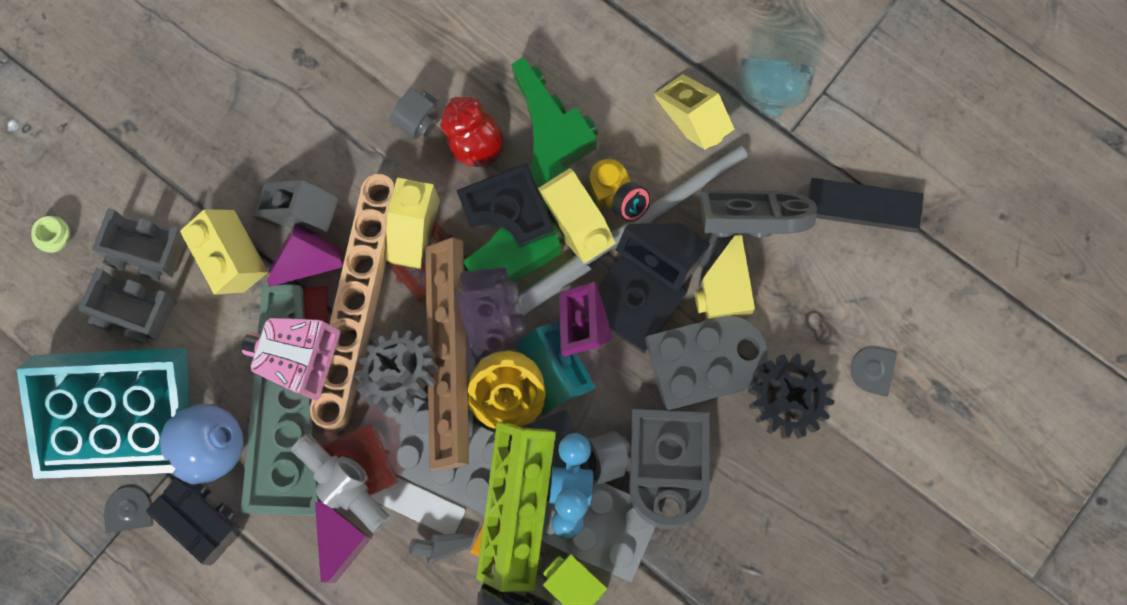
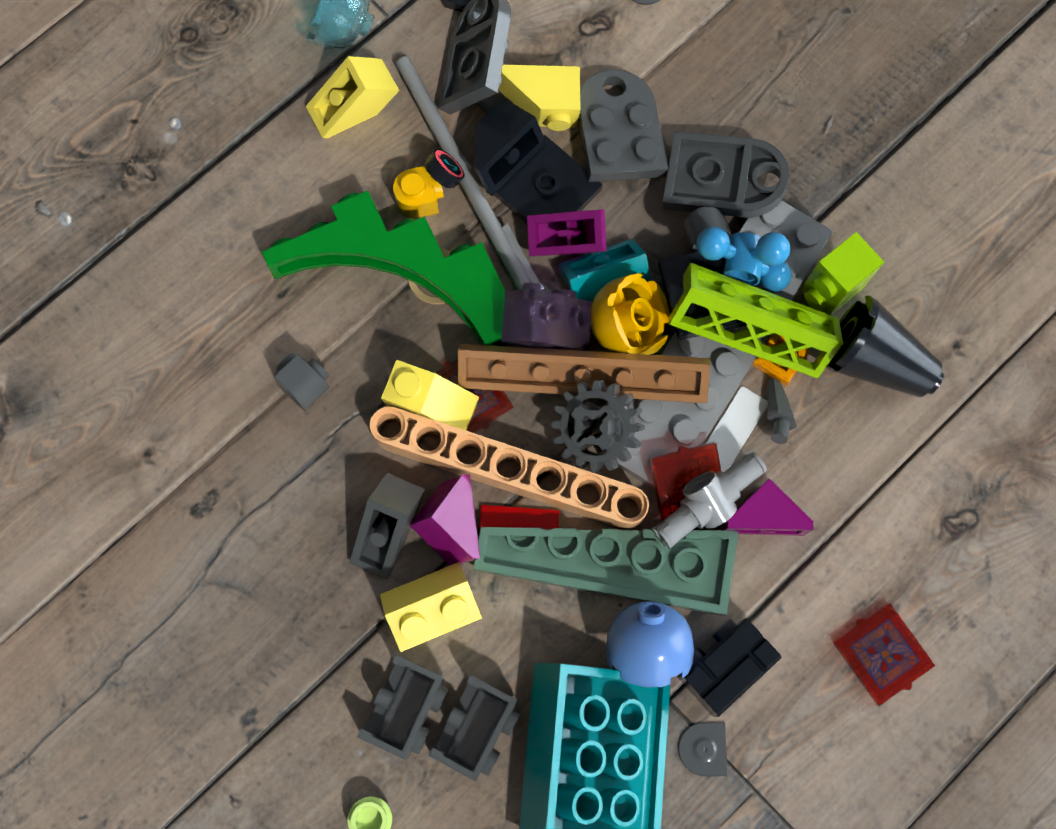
camera: 90 degrees left, 0 degrees up
(293, 353) = (566, 534): bright pink torso -> none
(471, 133) = (335, 324): red hair -> none
(508, 203) = (430, 284): black tile -> none
(576, 216) = (455, 219): light yellow slope -> none
(801, 406) = (667, 54): black gear -> none

